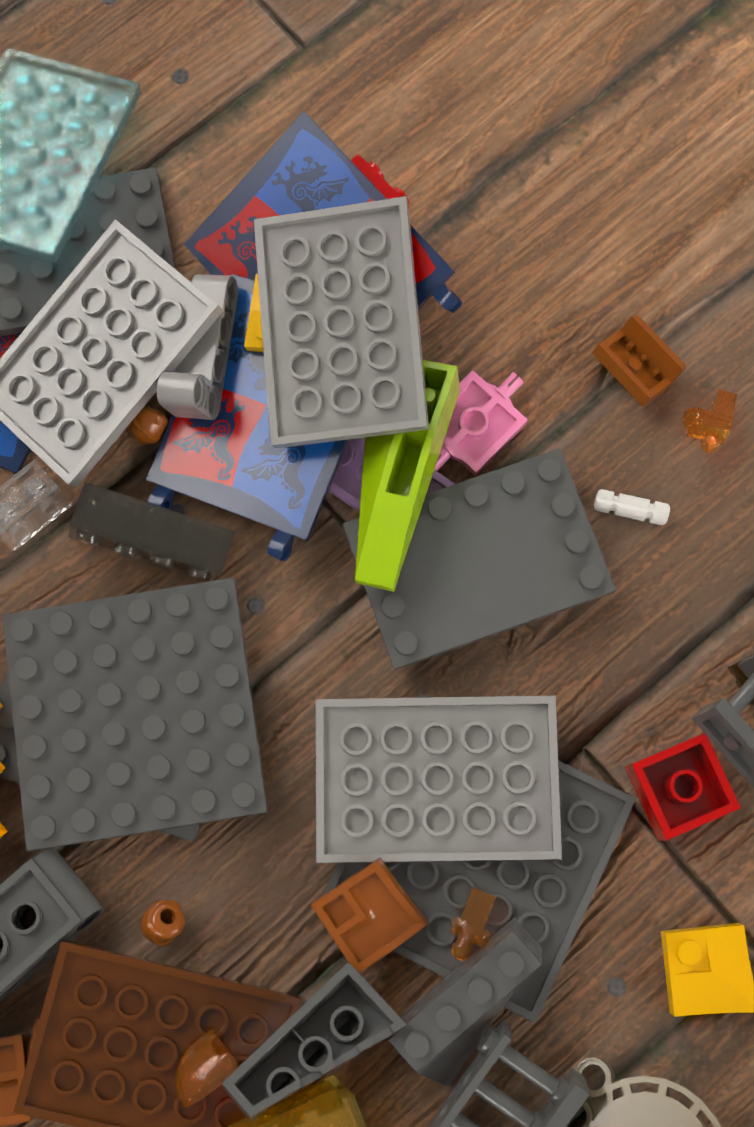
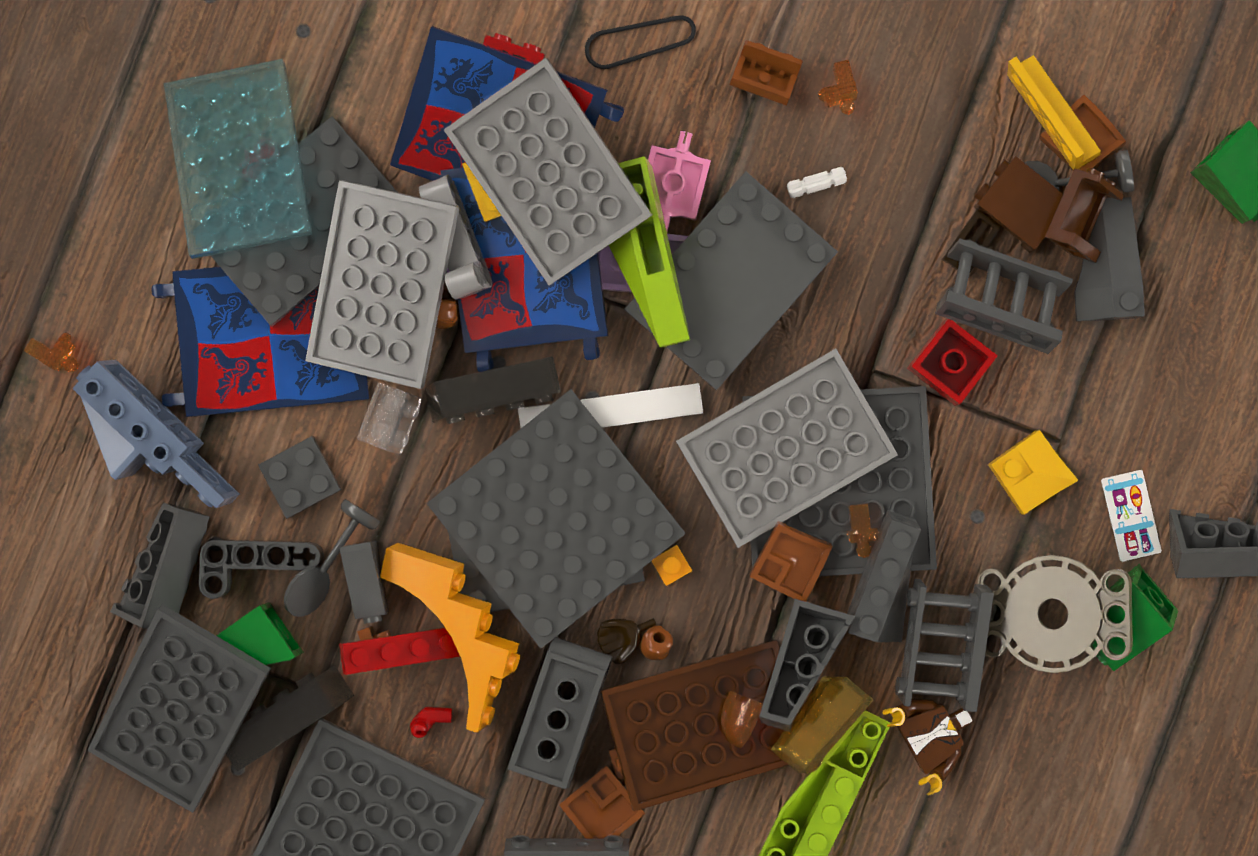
camera: 35 degrees left, 10 degrees up
(127, 892) = (621, 638): none -> dark brown piece
(233, 840) = (671, 565): none -> light orange plate
(299, 641) = (635, 406): none -> white tile
(524, 246) = (643, 55): none -> black piece

